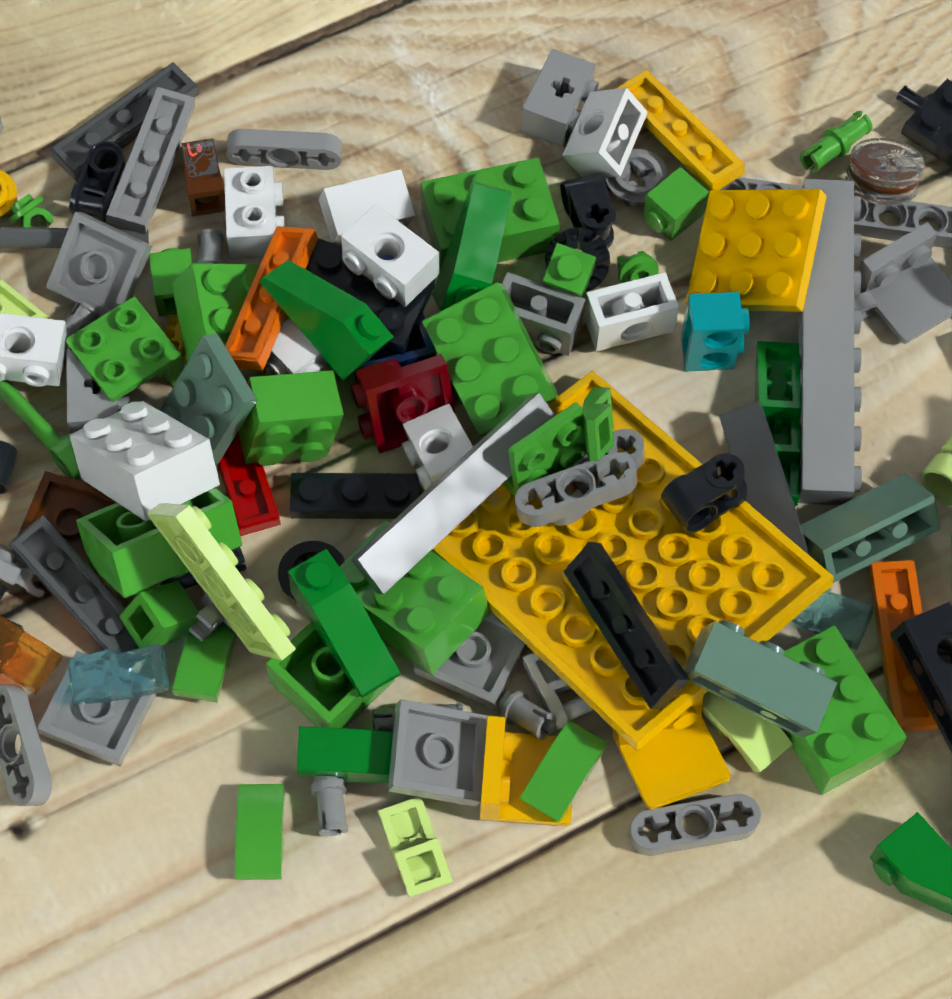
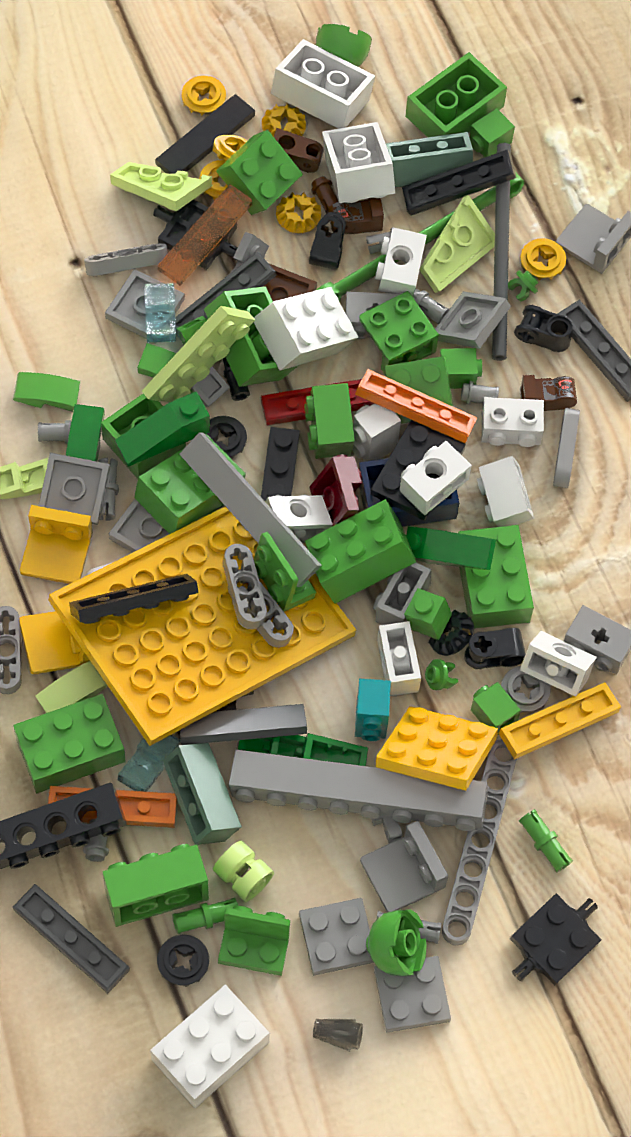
camera: 95 degrees right, 0 degrees up
(150, 160) = (559, 358): light grey plate -> none
(211, 395) = (345, 365): sand green plate -> none
(331, 319) = (392, 431): green slope -> none
(520, 710) = (104, 550): light grey pin -> none
(564, 770) = (51, 565): bright green slope -> none
(598, 423) = (295, 603): bright green slope -> none
(704, 494) = (228, 670): black piece -> none
(760, 678) = (78, 672): sand green brick -> none
(885, 171) = (509, 866): clear head -> none

